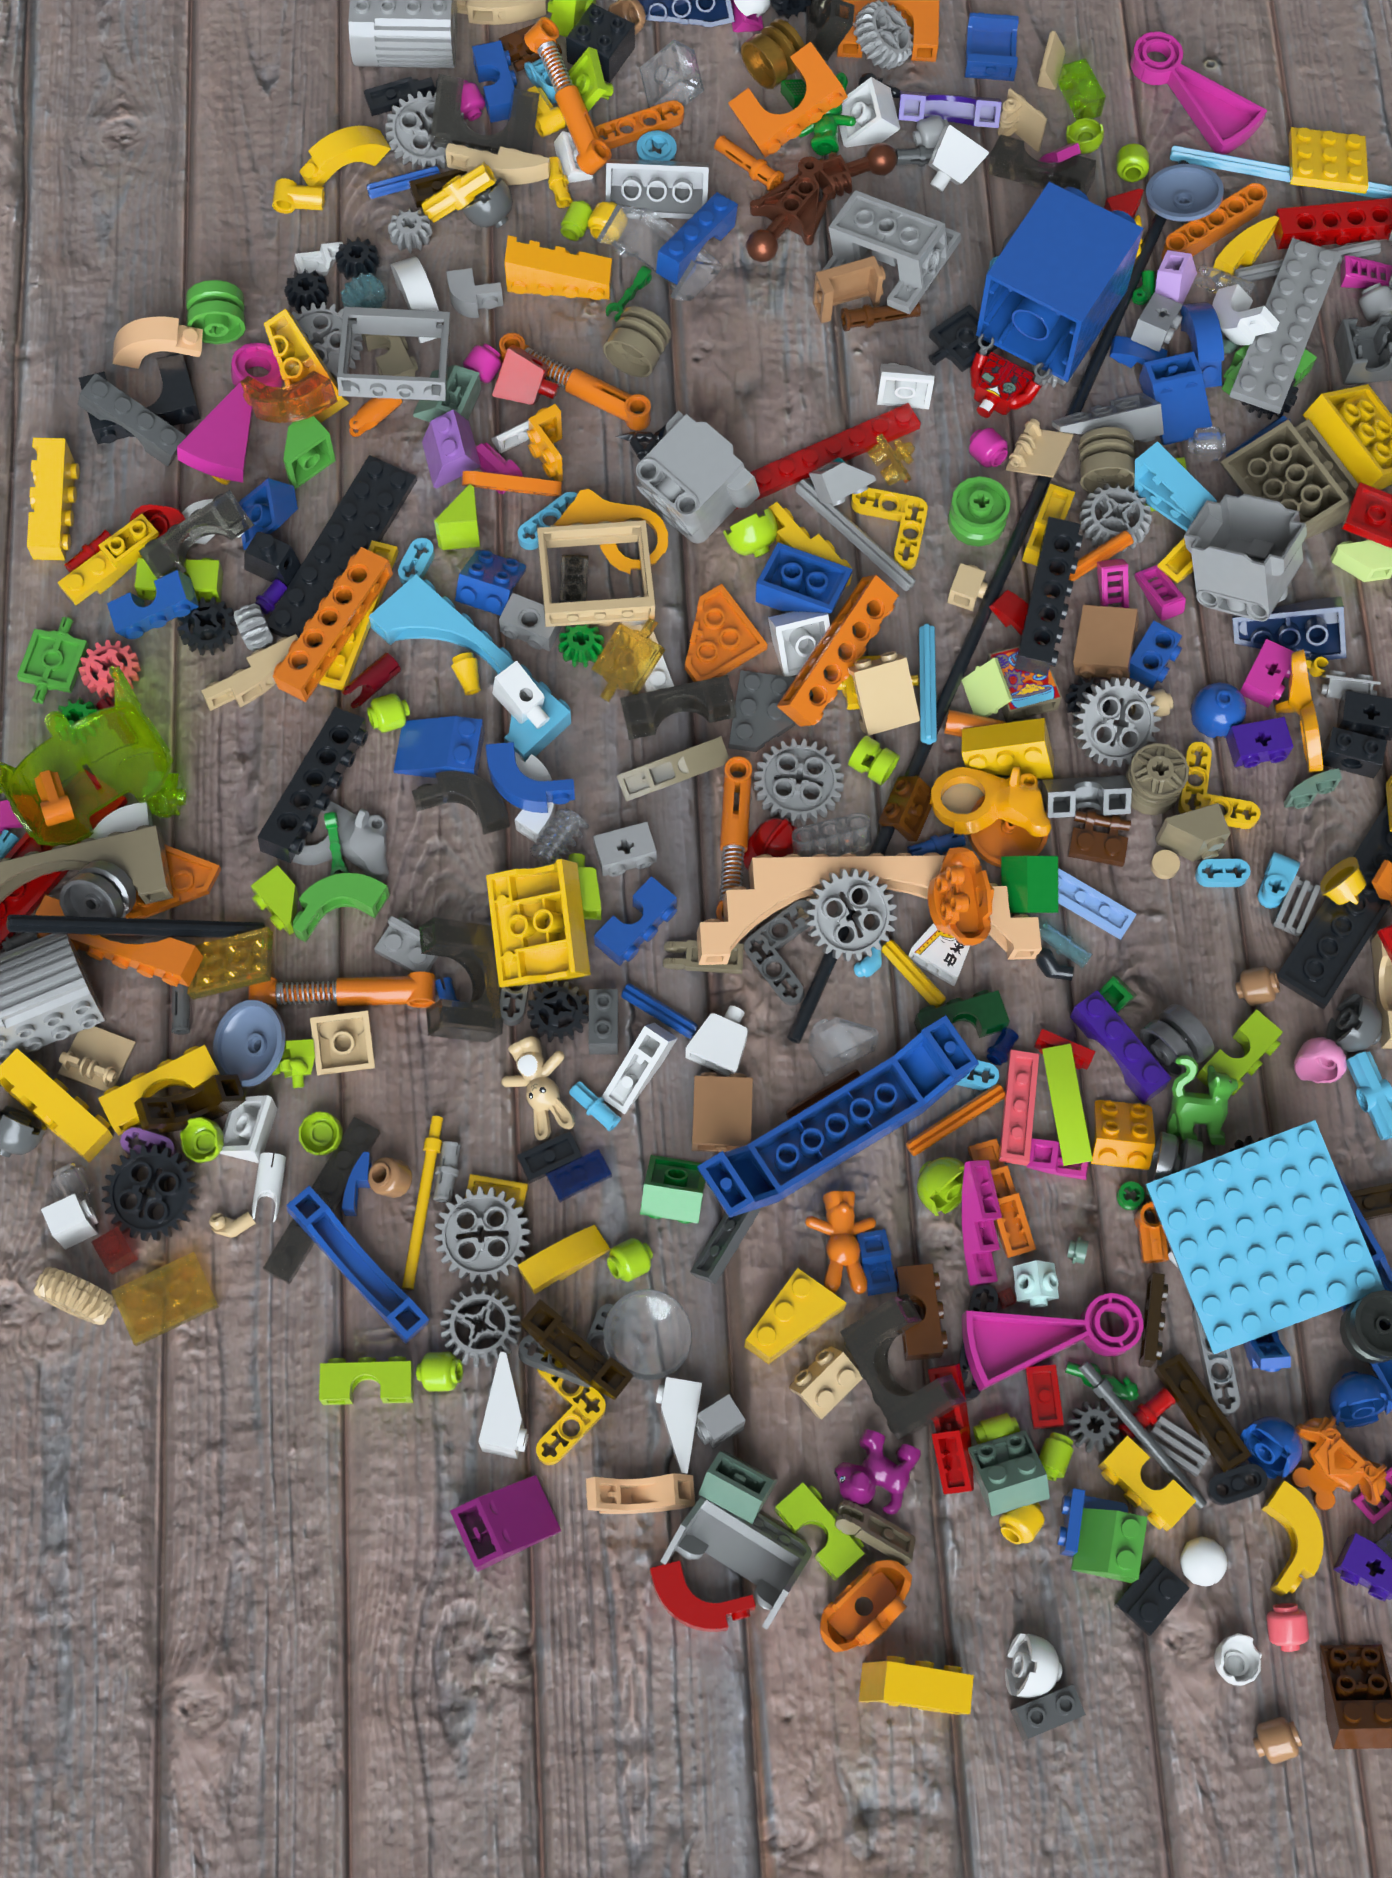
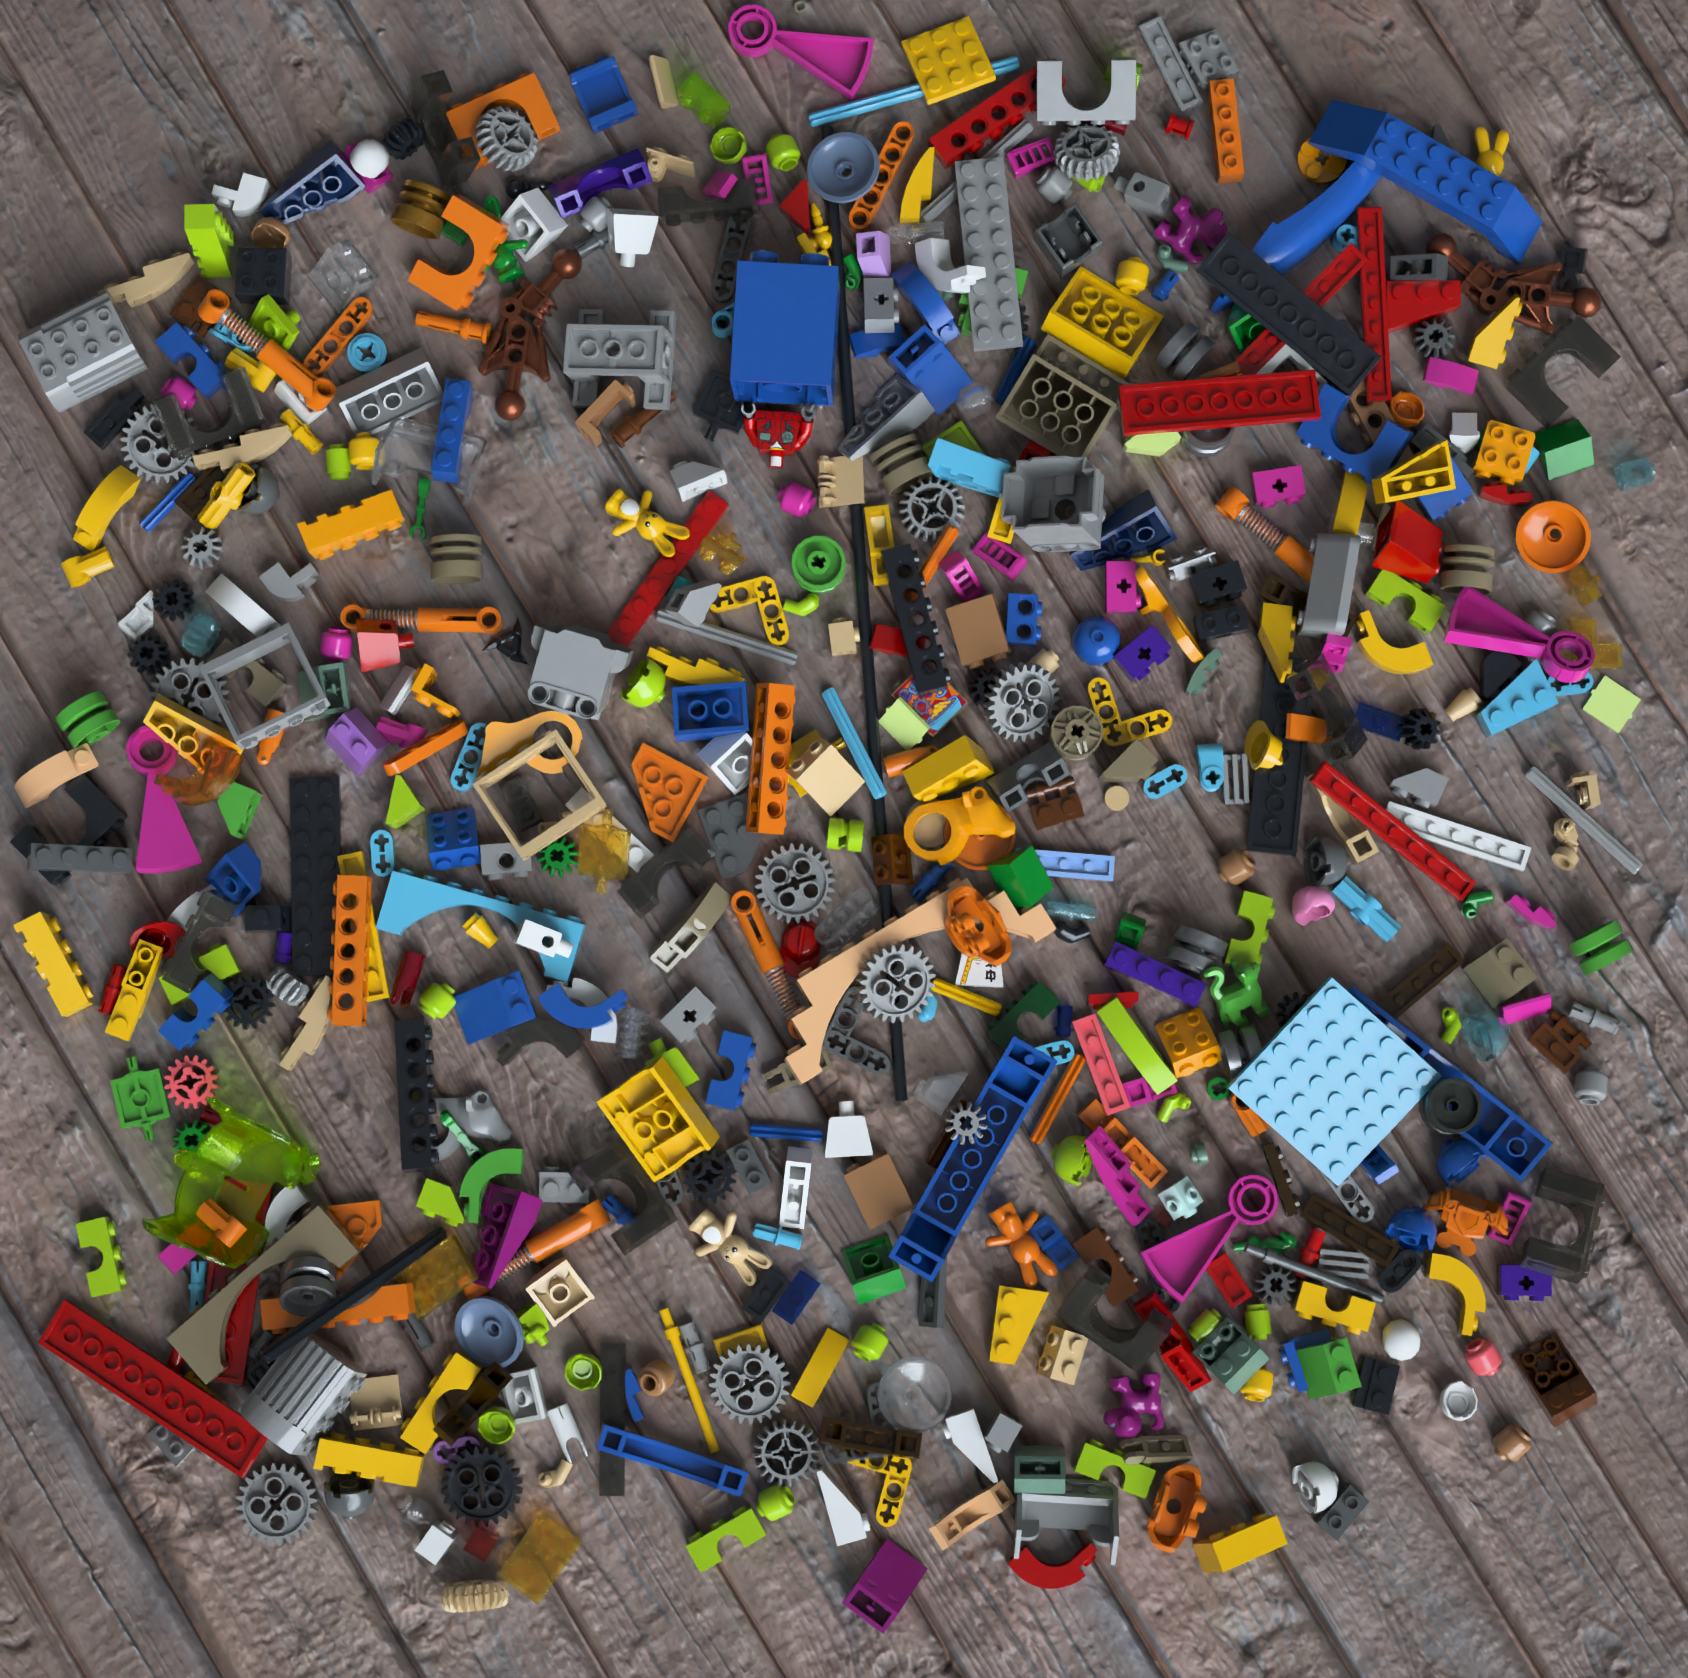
camera: 25 degrees left, 15 degrees up
(334, 945) = (506, 1223): none -> magenta wedge
(835, 399) = (648, 524): none -> yellow animal
(856, 1071) = (974, 1122): none -> light grey gear
(943, 544) = (803, 607): none -> lime arm
(1076, 1185) = (1171, 1103): none -> lime arm
(1108, 160) = (756, 159): none -> dark pink slope

